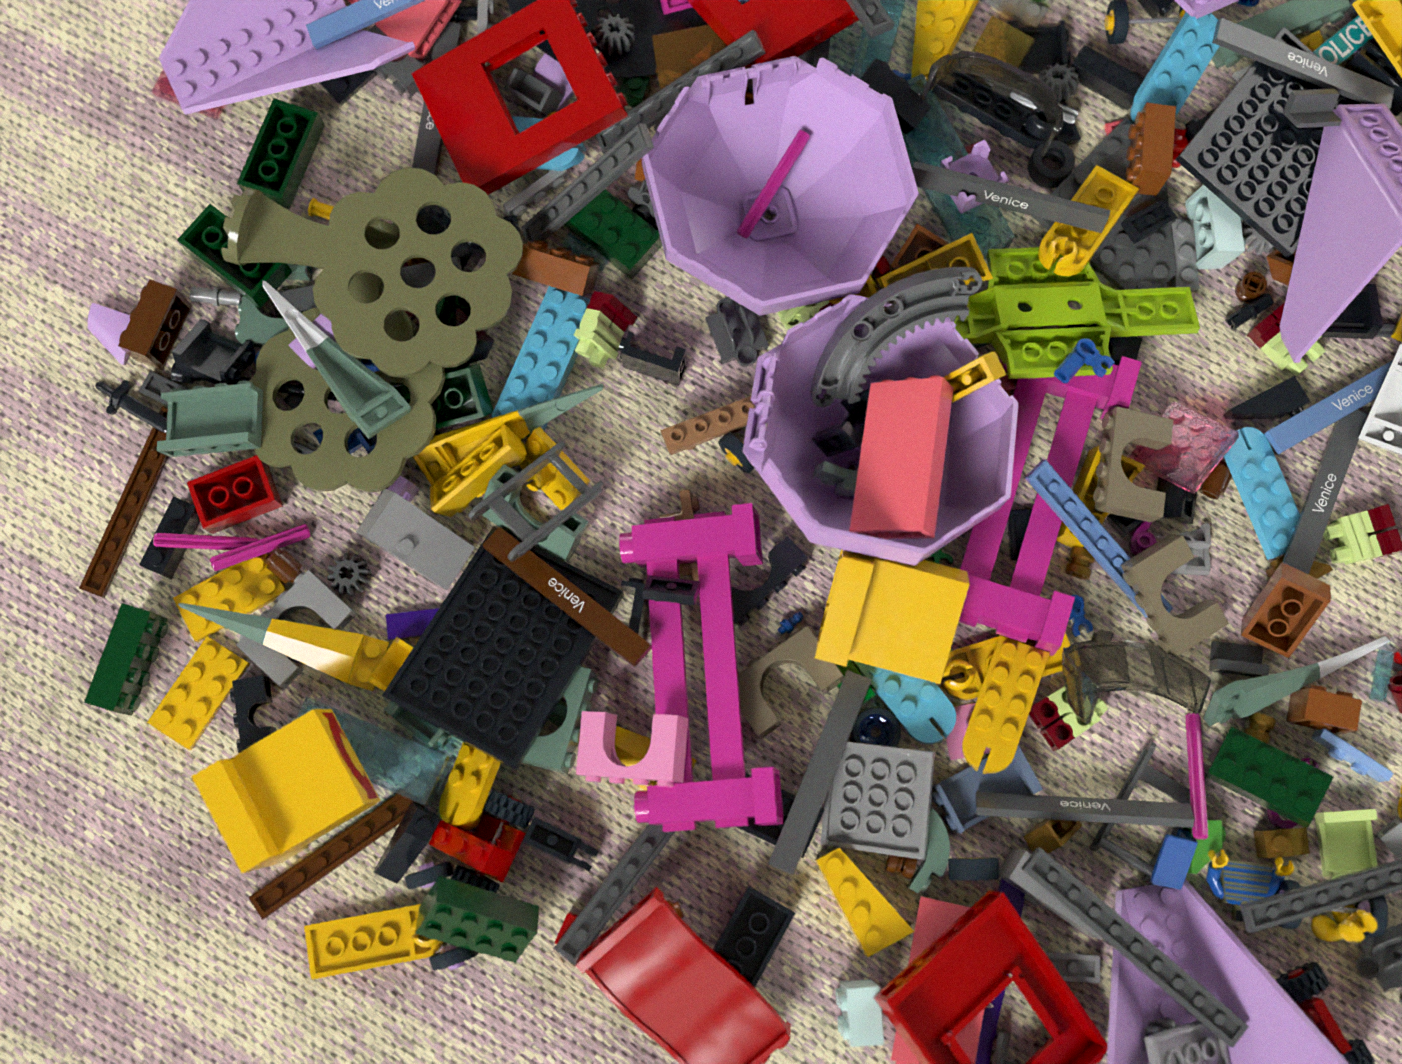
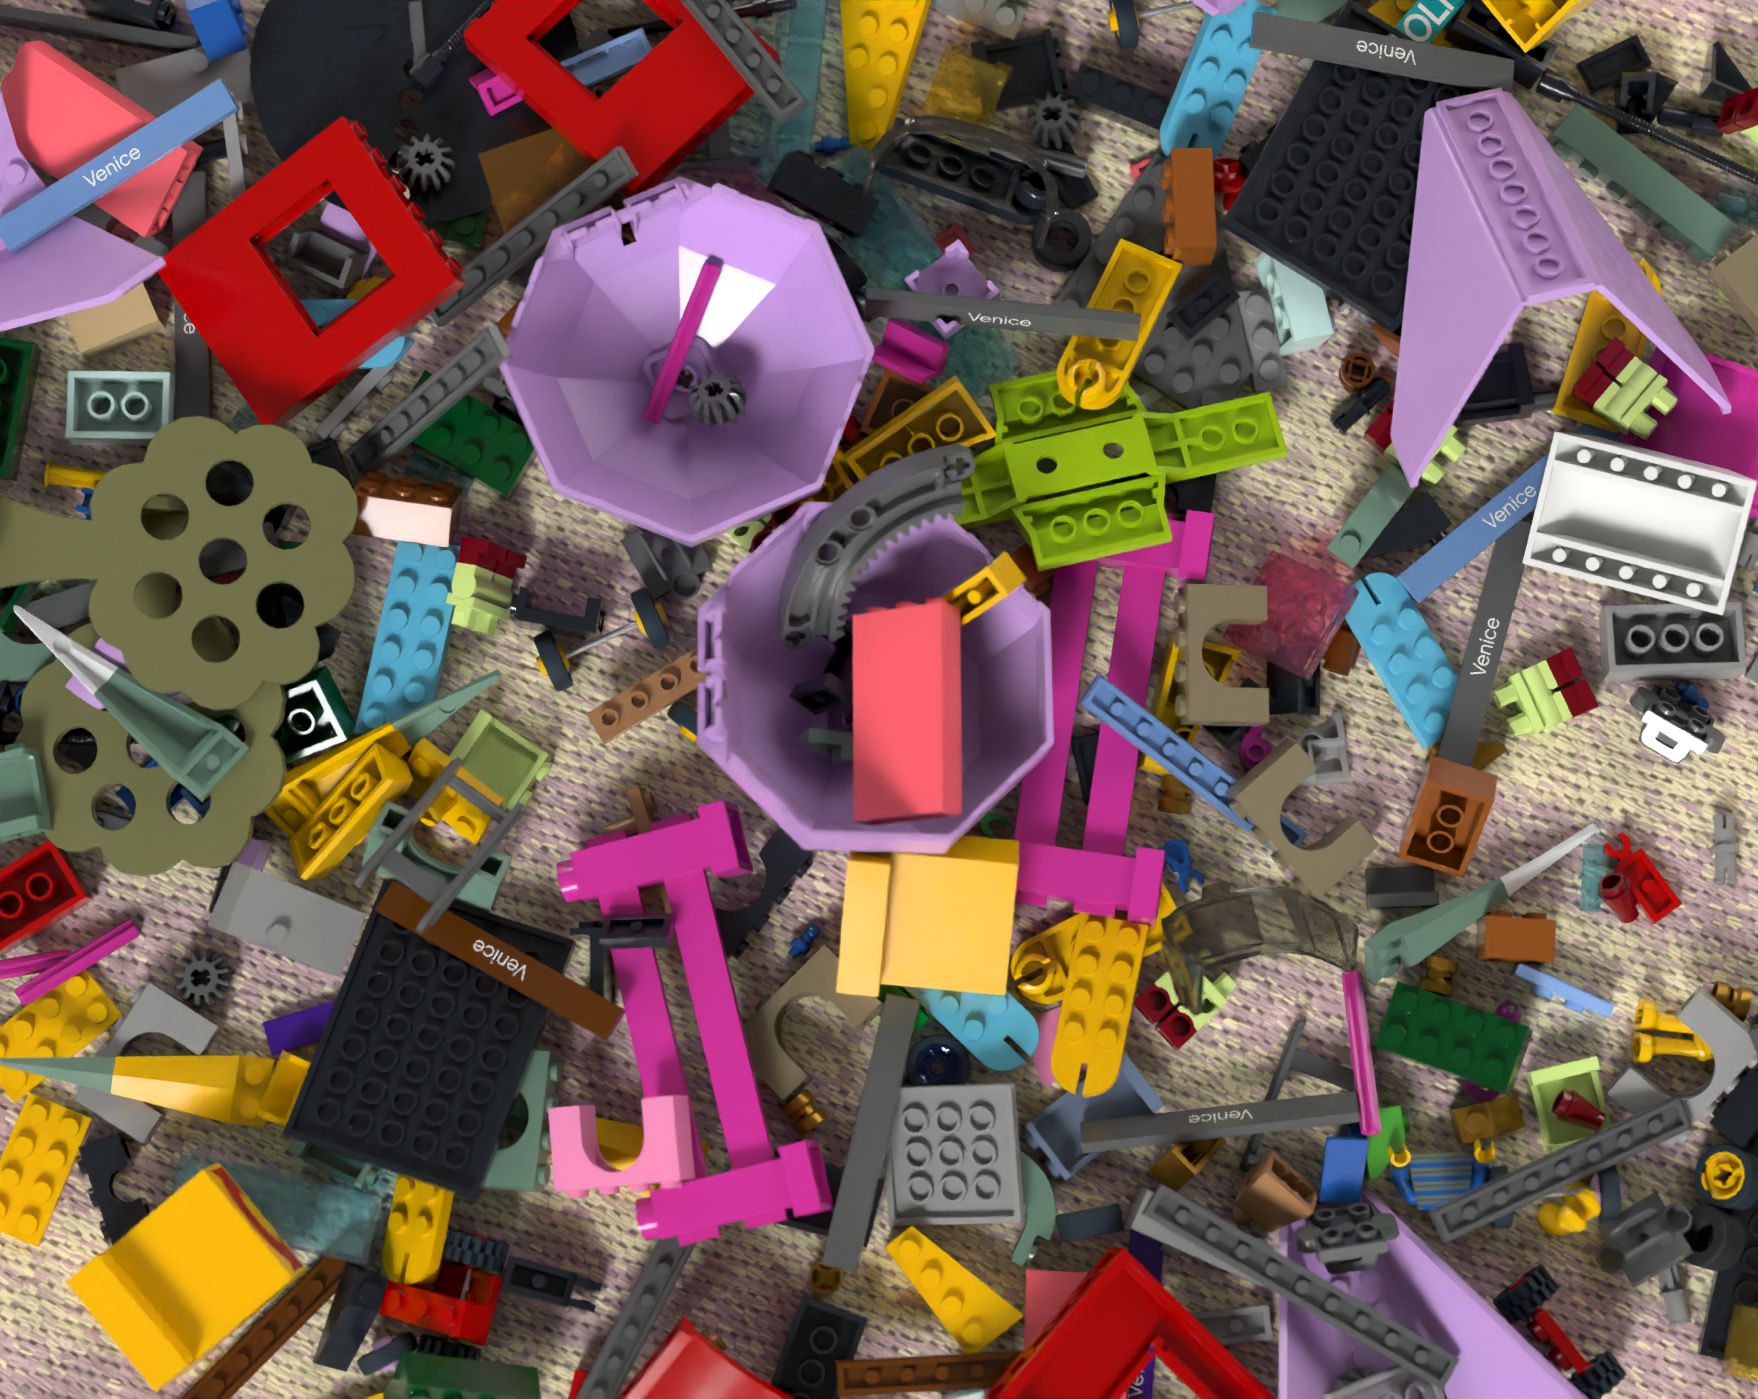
camera: 10 degrees left, 5 degrees up
(283, 565) = (112, 981): reddish brown brick -> none
(362, 164) = (118, 406): none -> light aqua brick
(378, 111) = (115, 323): none -> tan piece
(594, 454) = (501, 759): none -> yellowish green panel
(717, 372) = (555, 662): none -> black axle
(766, 744) = (804, 1104): none -> pearl gold wheel
(767, 876) = (825, 1280): none -> pearl gold wheel
(792, 226) = (717, 400): none -> dark grey gear
(833, 963) = (922, 1373): none -> reddish brown tile
(895, 862) = (989, 1236): reddish brown wheel -> none
(937, 216) = (911, 351): none -> dark pink panel
(1083, 352) = (1129, 521): blue bar -> none
(1117, 872) = (1274, 1195): none -> medium nougat torso
(1171, 914) = (1345, 1235): none -> dark grey piece
(1252, 387) = (1371, 516): none -> sand green arch
(1312, 108) = (1399, 119): dark grey panel -> none
(1352, 846) = (1576, 1110): none -> dark red cone

